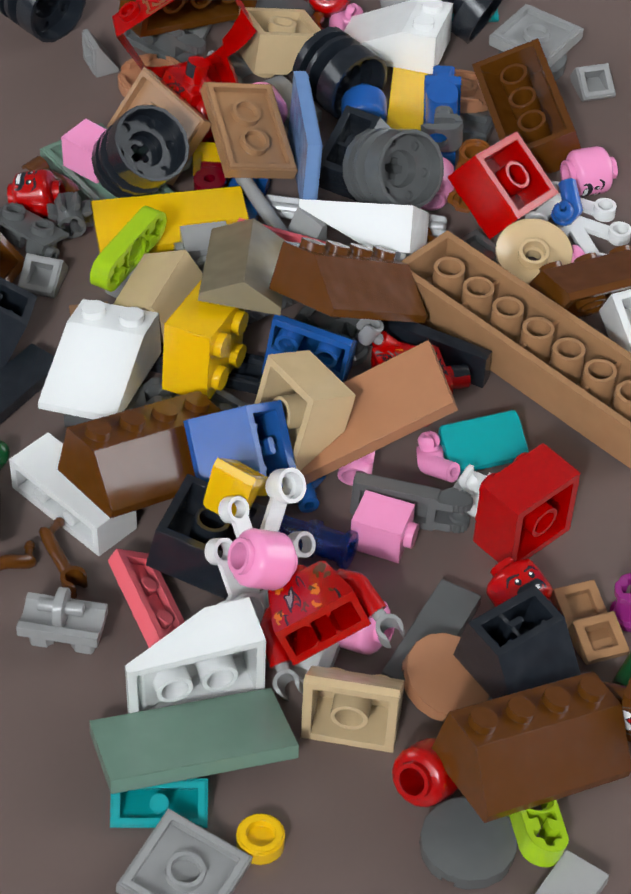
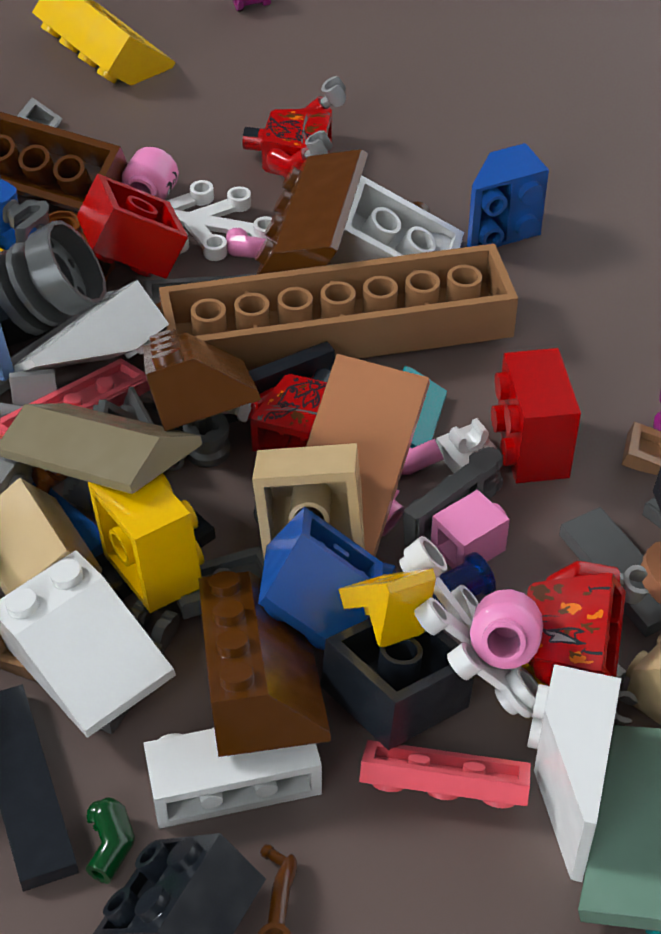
camera: 55 degrees left, 0 degrees up
(62, 620) = (418, 867): light grey hips -> none
(69, 574) = (305, 831): reddish brown piece -> none
(329, 347) = (221, 468): blue slope -> none
(514, 577) = (617, 476): red head -> none
(531, 239) = (219, 252): tan dish -> none
(570, 207) = (188, 211): blue arm -> none

